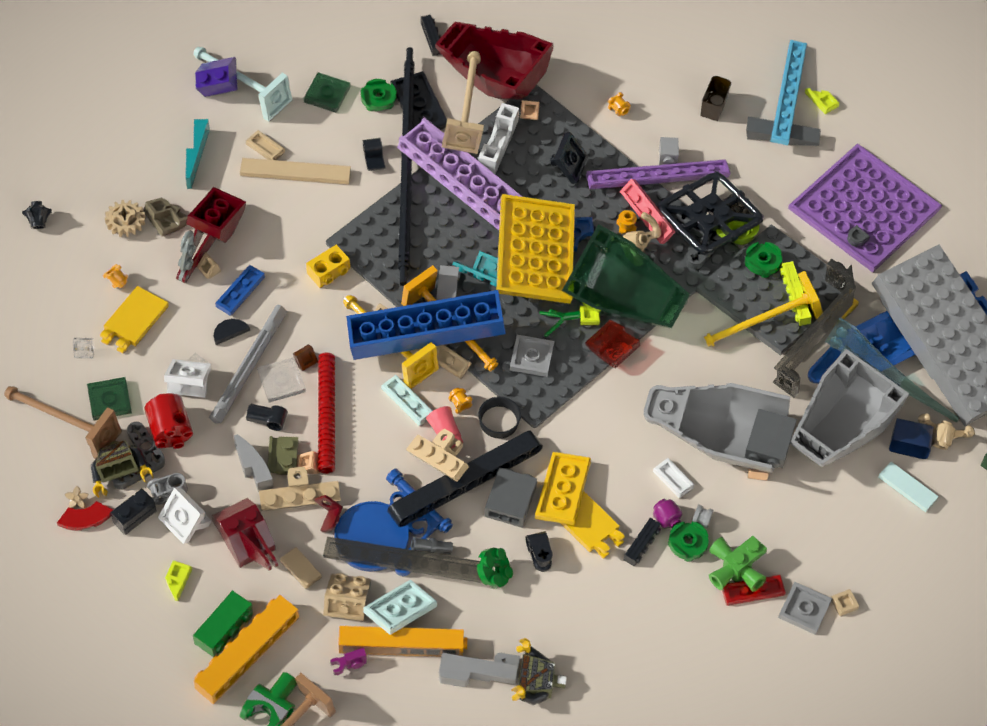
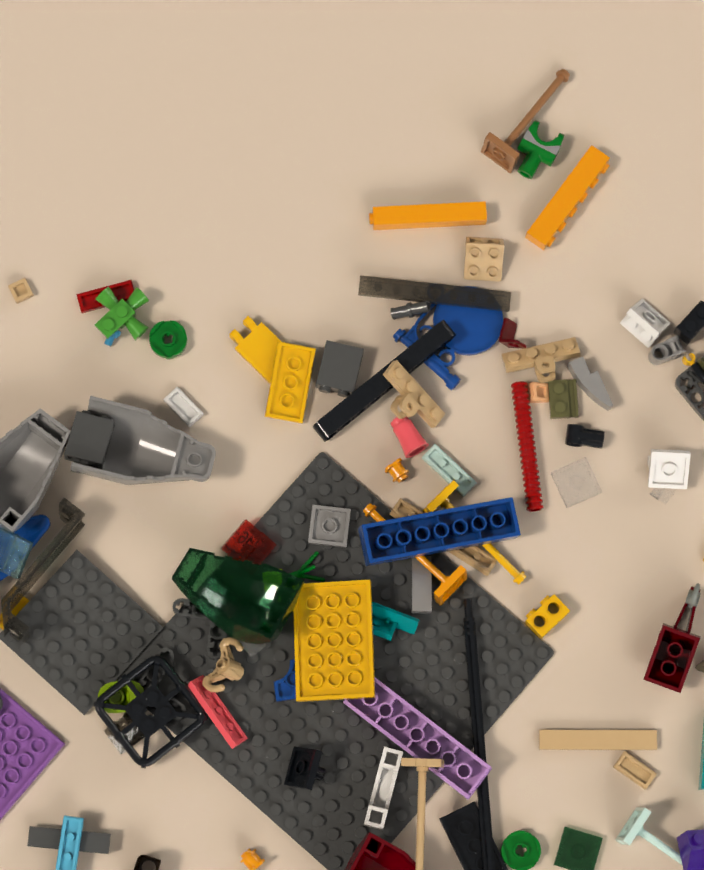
camera: 175 degrees right, 20 degrees up
(168, 421) = (678, 416): red cylinder -> none
(177, 578) = (642, 264): neon yellow tile -> none
(208, 266) = (669, 608): tan slope -> none
(223, 624) = (592, 219): green brick -> none
(229, 329) = (637, 535): black tile -> none
(240, 290) = (633, 581): blue plate -> none
(246, 534) = (585, 305): dark red slope -> none
(248, 364) = (598, 532): light grey piece -> none
(300, 568) = (529, 283): tan tile -> none
(305, 357) = (556, 505): reddish brown tile -> none
(353, 660) = (470, 194): magenta plate -> none
(373, 154) = (515, 767): black panel -> none
(400, 607) = (433, 245): light aqua tile -> none
(459, 670) = (374, 194): light grey piece -> none
(494, 558) = (353, 281): green plate -> none
(499, 402) = (357, 436): black tyre -> none
(529, 110) = (350, 841): light nougat slope -> none
(536, 676) = (304, 188): torso -> none
(540, 550) = (309, 319): black piece -> none
(626, 221) = (236, 703): light orange brick -> none
(642, 542) = (213, 332): black piece -> none
(656, 173) = (206, 768): medium lavender tile -> none
(667, 513) = (188, 364): magenta head -> none
(668, 150) = (196, 799): light grey brick -> none
(703, 516) = (155, 364): light grey wheel -> none
(761, 267) = (93, 647): green plate -> none
(795, 291) = (60, 616): neon yellow piece -> none
(805, 608) = (58, 282): light grey tile -> none
(809, 297) = (47, 600): yellow tile -> none

